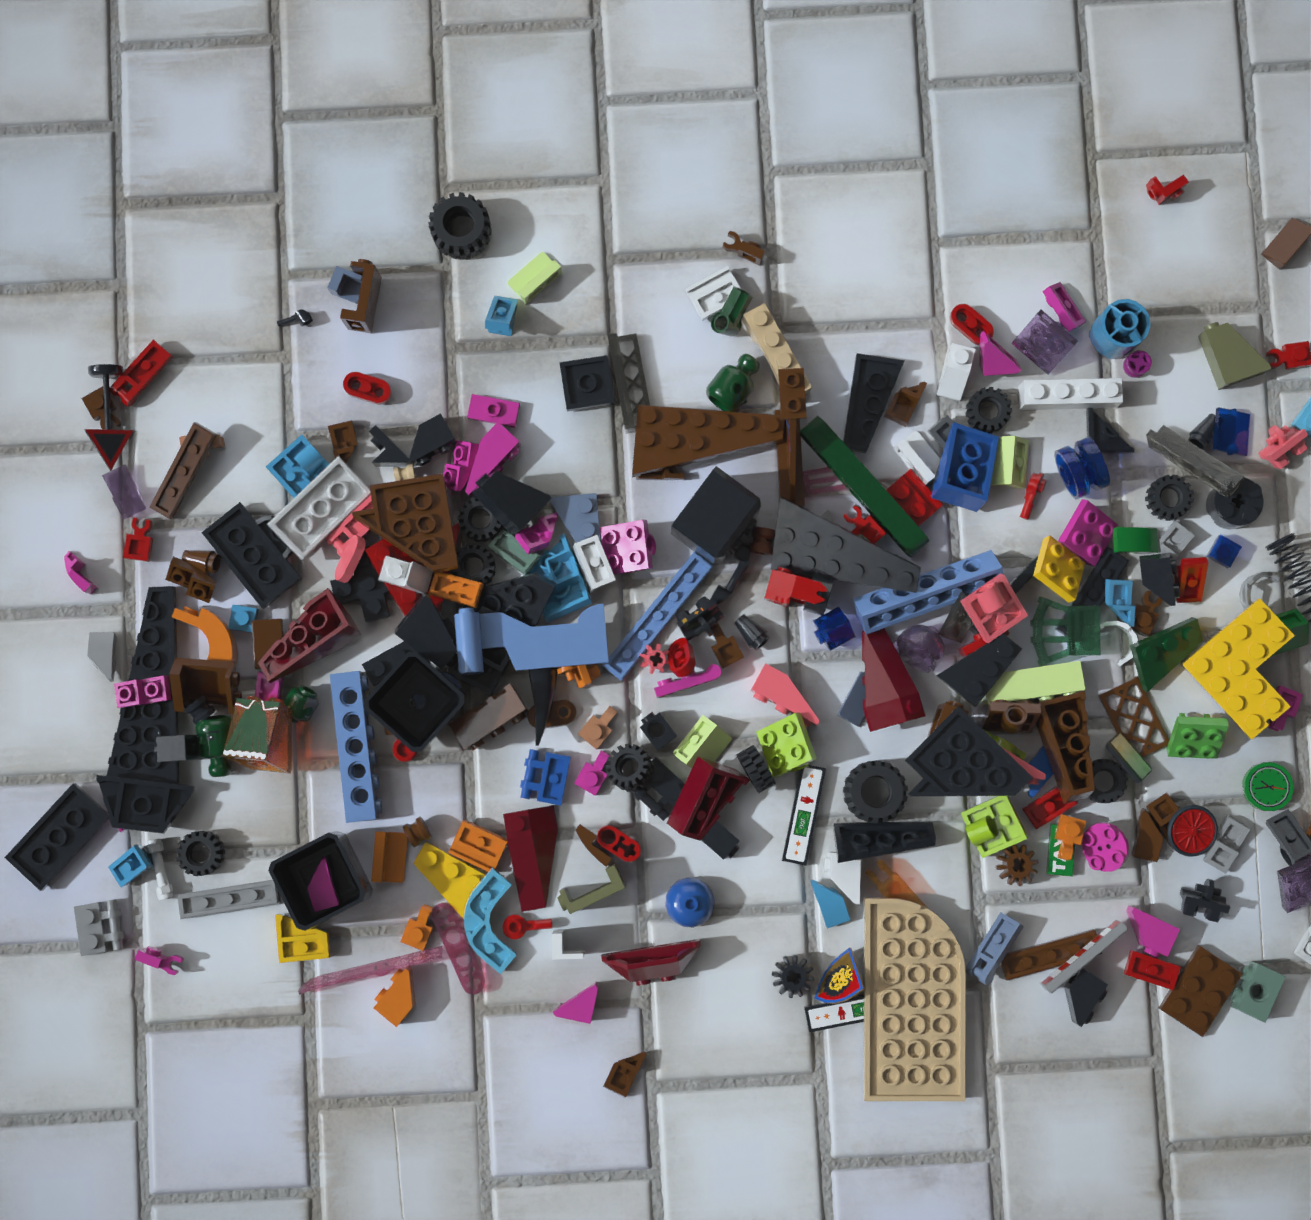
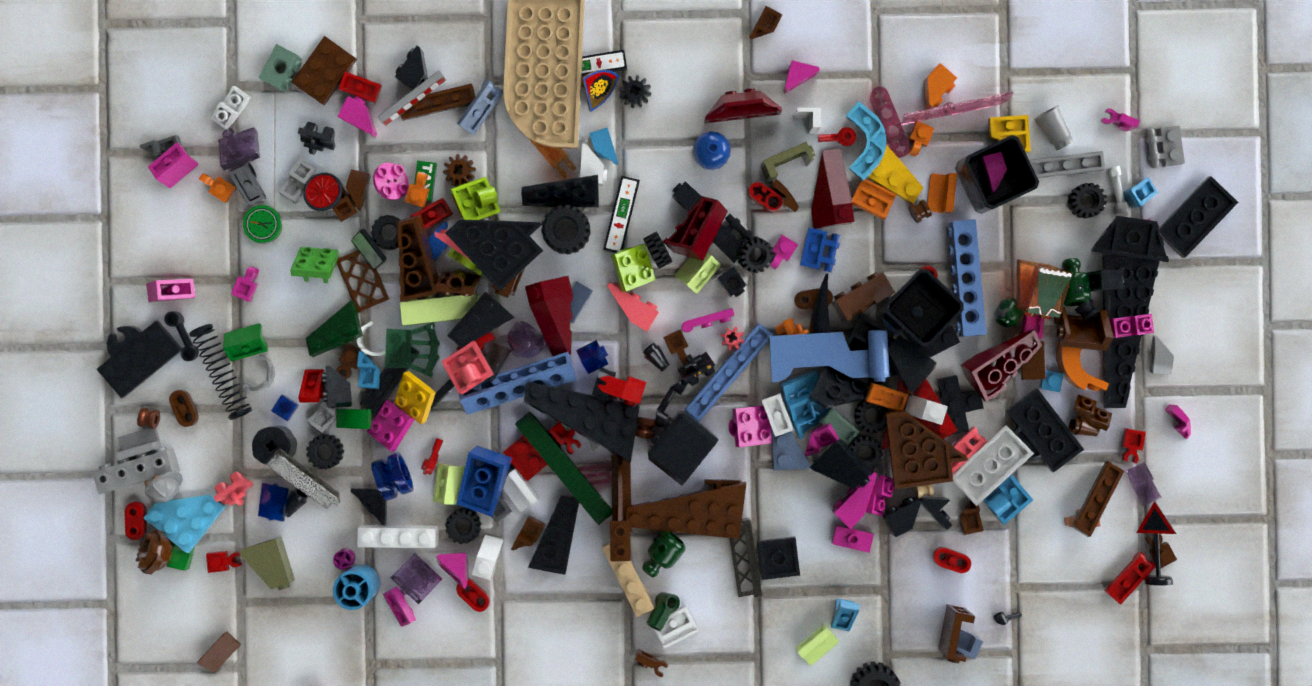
camera: 170 degrees left, 5 degrees up
(244, 947) = (1054, 127): none -> light grey plant
(350, 559) = (968, 424): coral tile -> none
(596, 729) = (779, 285): nougat plate -> none
(681, 658) = (712, 338): red plate -> none
(1229, 664) = (286, 317): yellow piece -> none

